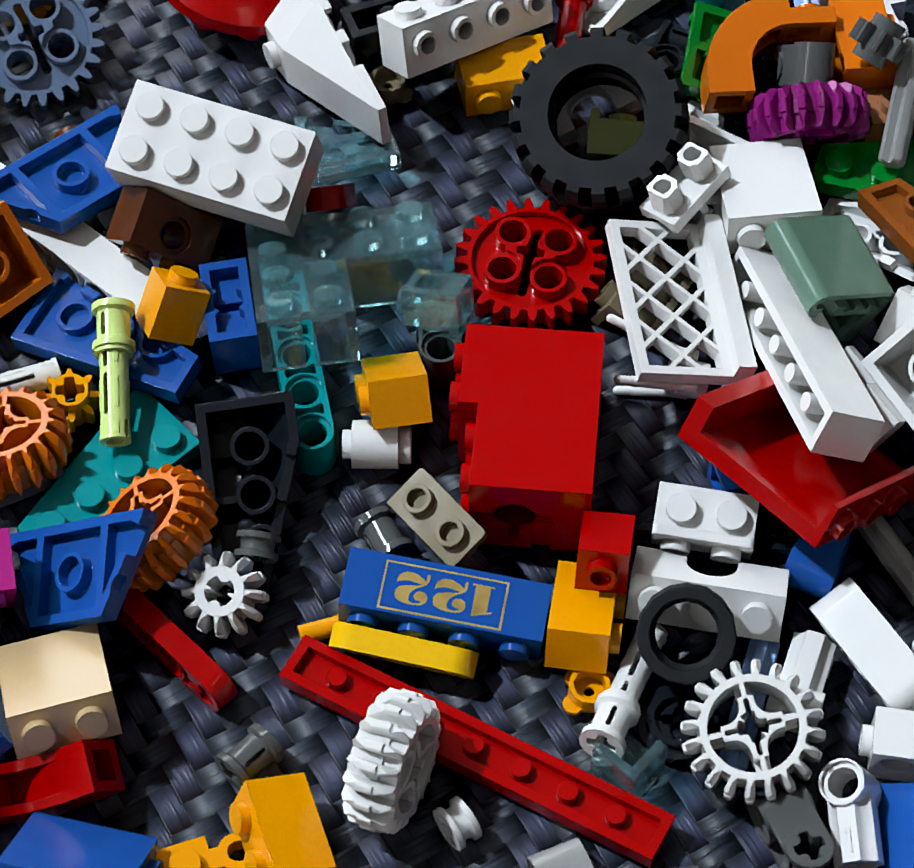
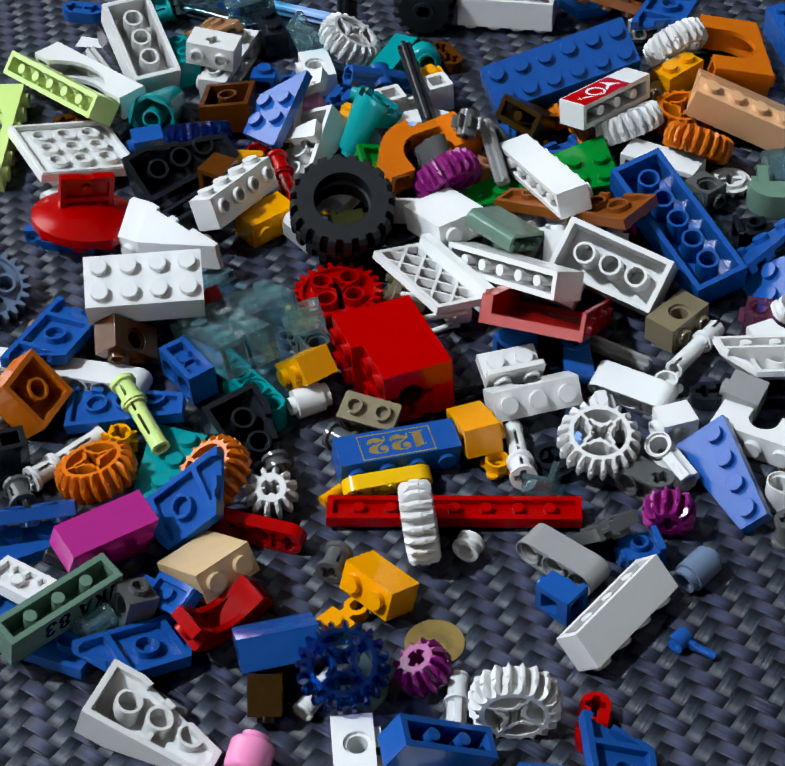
camera: 25 degrees left, 15 degrees down
(173, 305) = (156, 370): light orange brick -> none
(604, 551) = (471, 390): red brick -> none
(679, 672) = (543, 386): black tyre -> none
(686, 189) = (406, 223): white hips -> none

